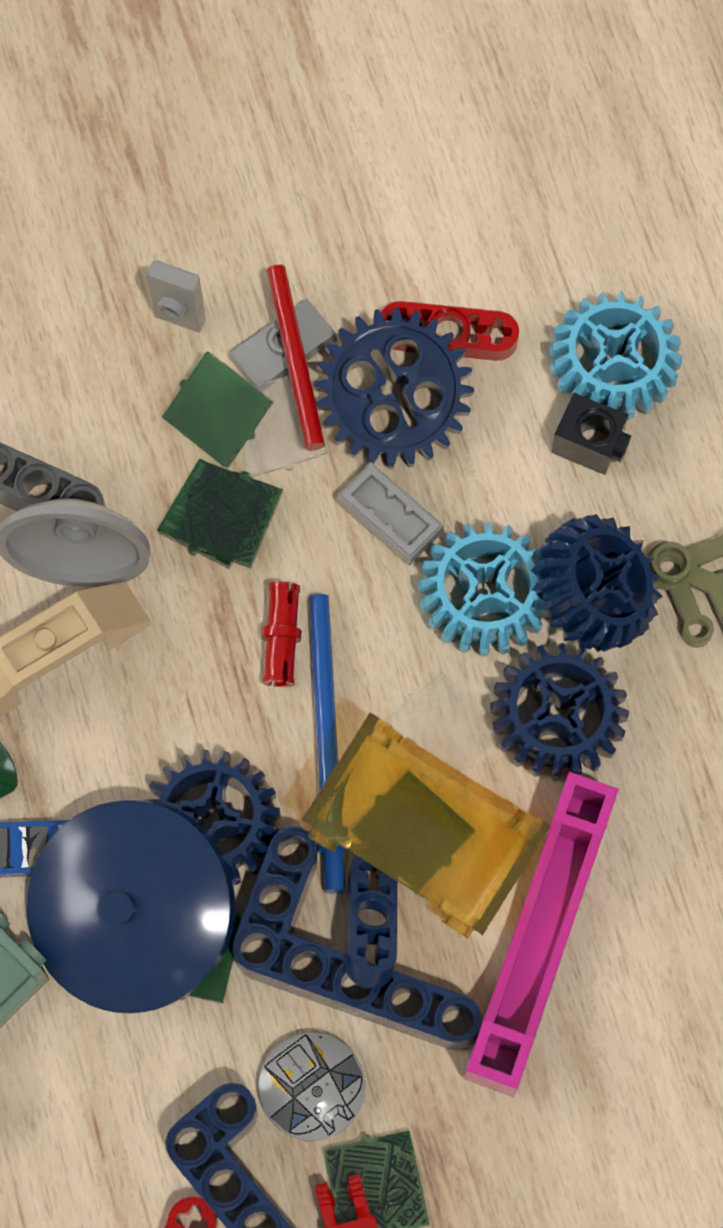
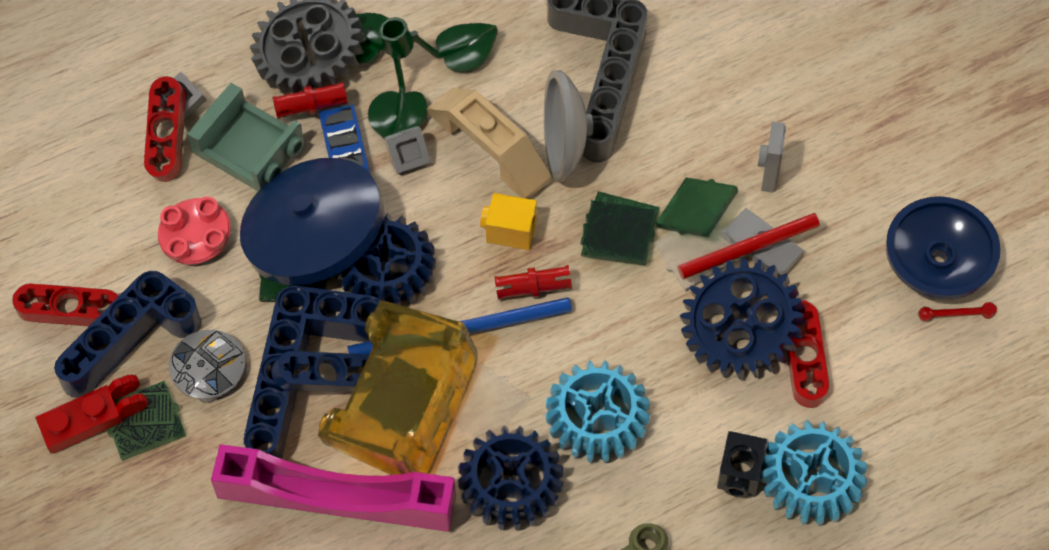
camera: 80 degrees right, 10 degrees down
(39, 761) = (407, 149): none -> light grey plate
(96, 1079) = (193, 230): none -> coral dish
(184, 646) = (509, 221): none -> yellow brick
(344, 112) = (944, 230): none -> dark blue dish
(390, 513) = (644, 337): light grey plate -> none
(428, 117) = (988, 311): none -> red hinge
(596, 583) = (623, 464): dark blue gear -> none

